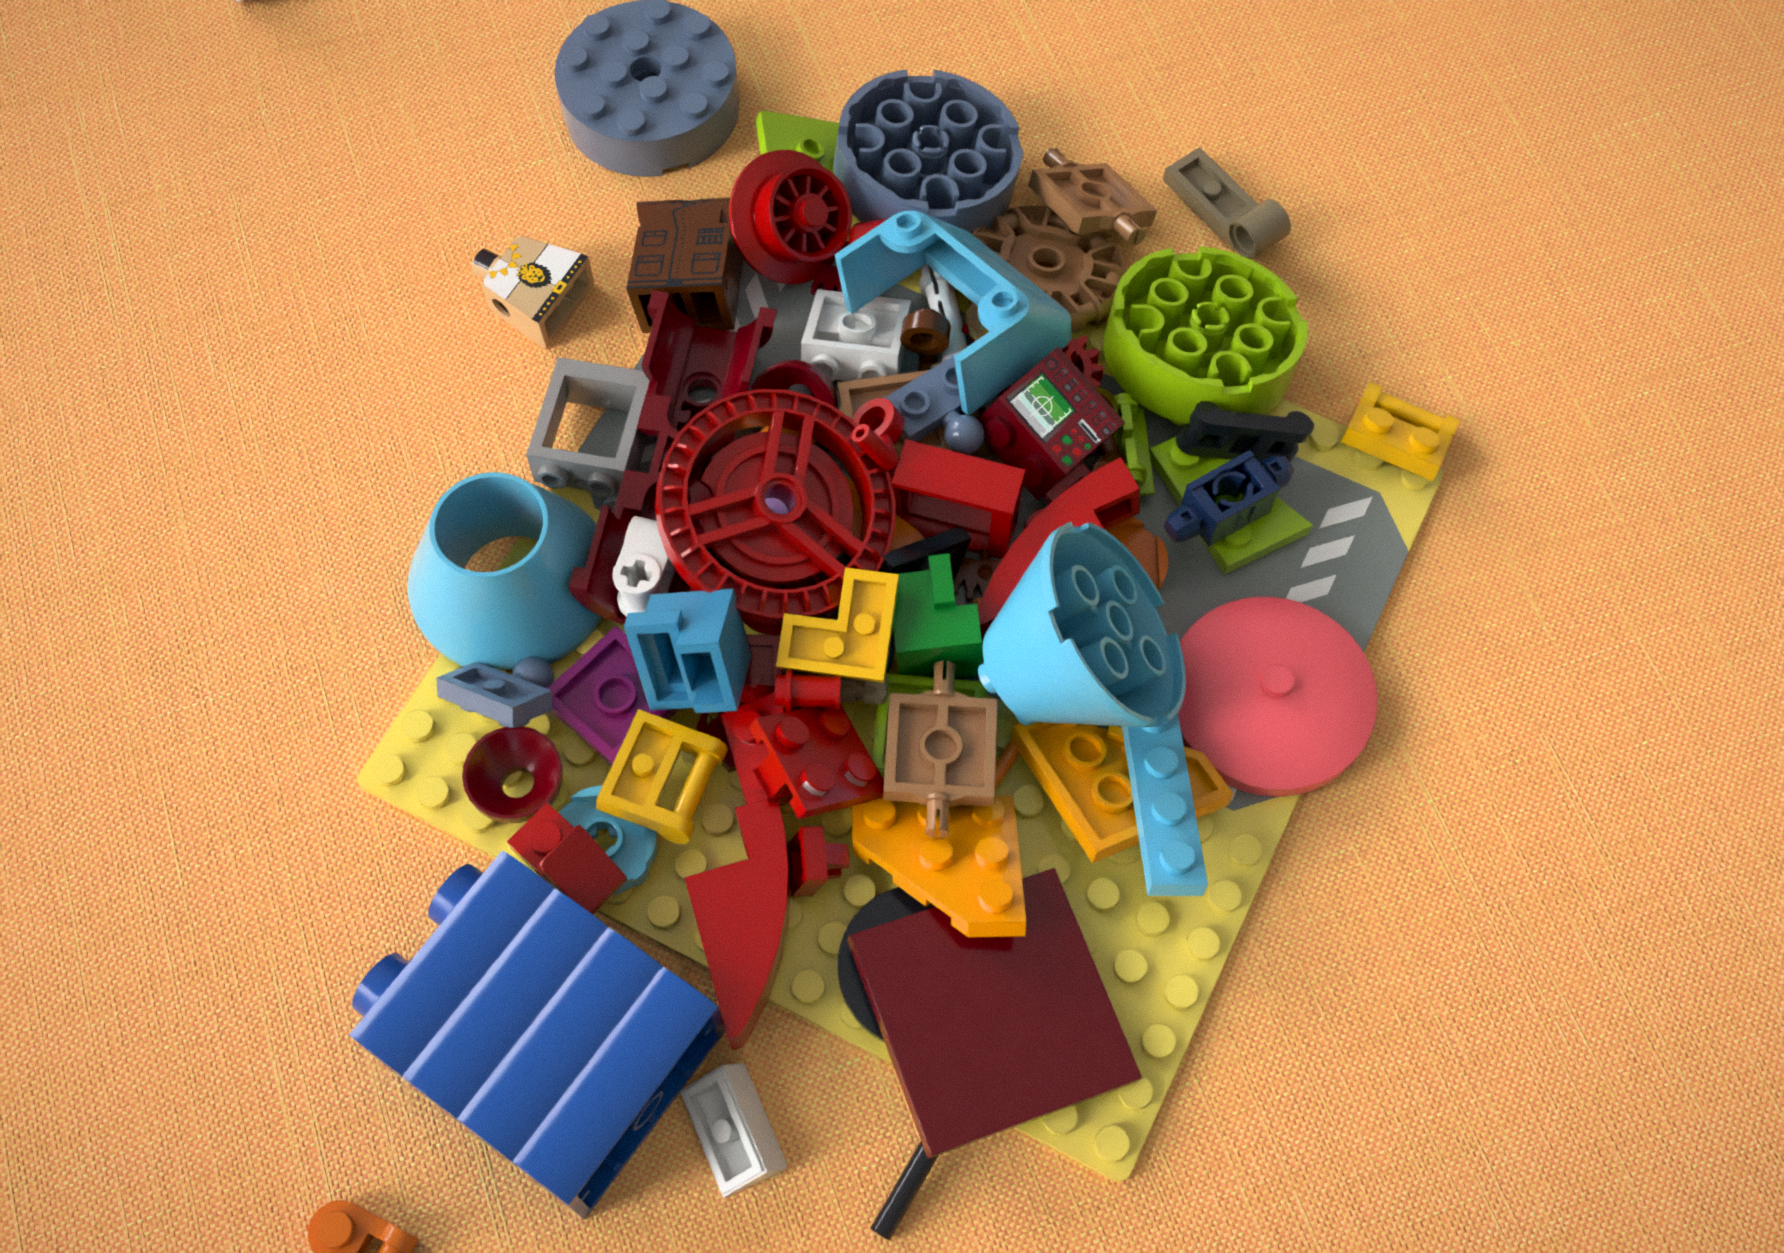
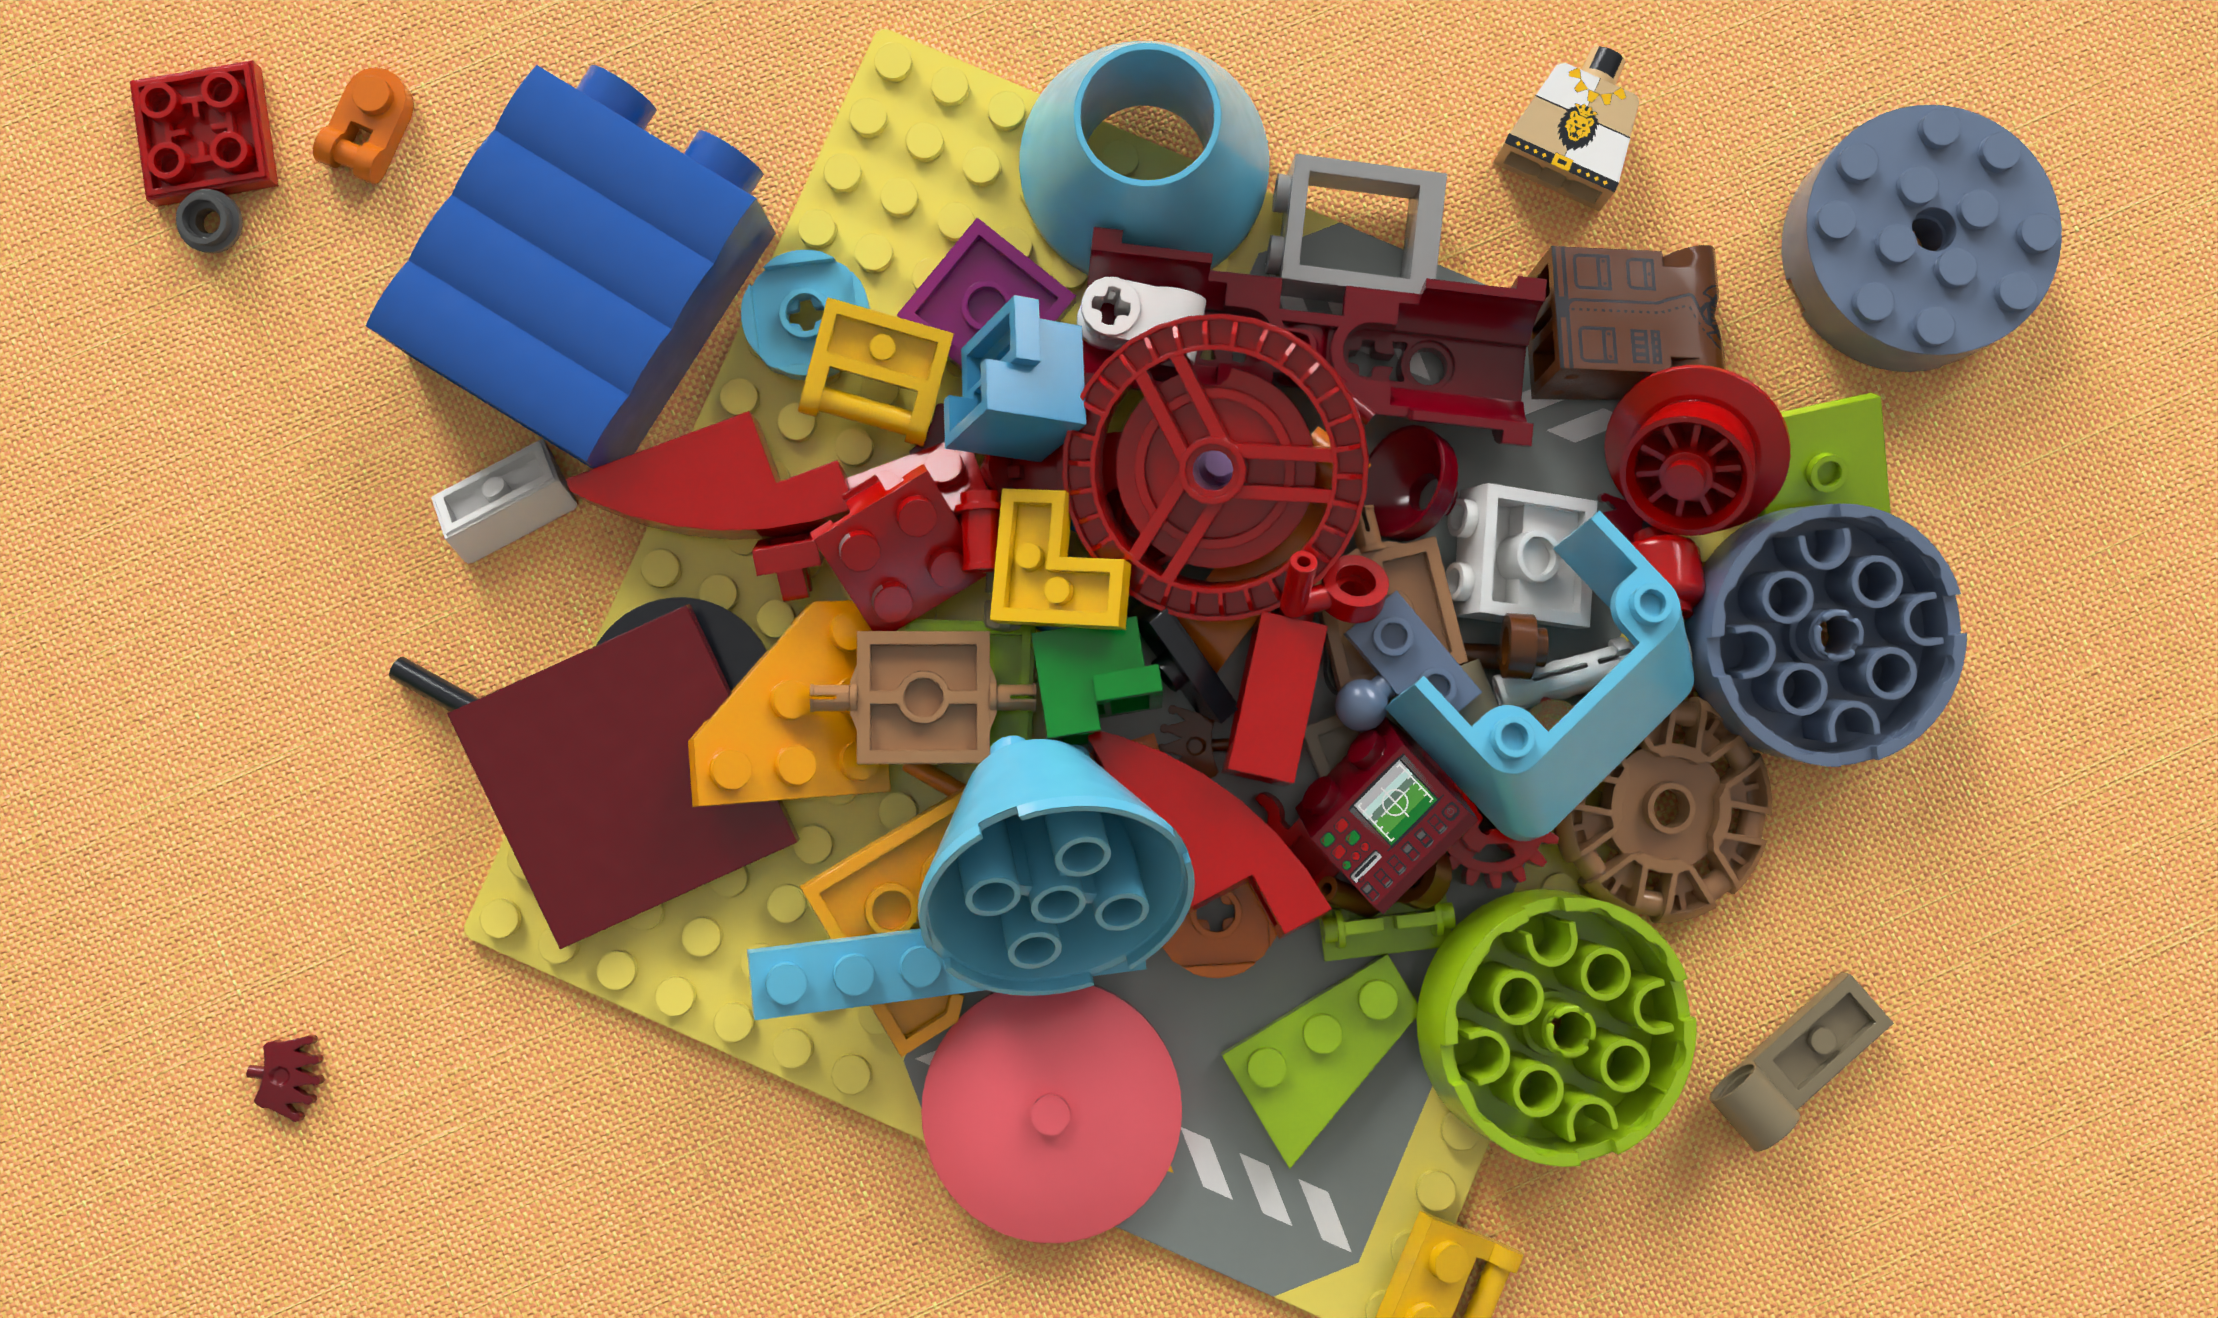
camera: 85 degrees right, 20 degrees up
(498, 695) = (970, 172): sand blue plate -> none
(503, 754) = (863, 173): dark red piece -> none
(567, 858) = (767, 276): red slope -> none
(1092, 198) = (1783, 869): medium nougat plate -> none
(1231, 433) = (1404, 1077): black plate -> none
(1239, 476) = (1339, 1113): dark blue piece -> none

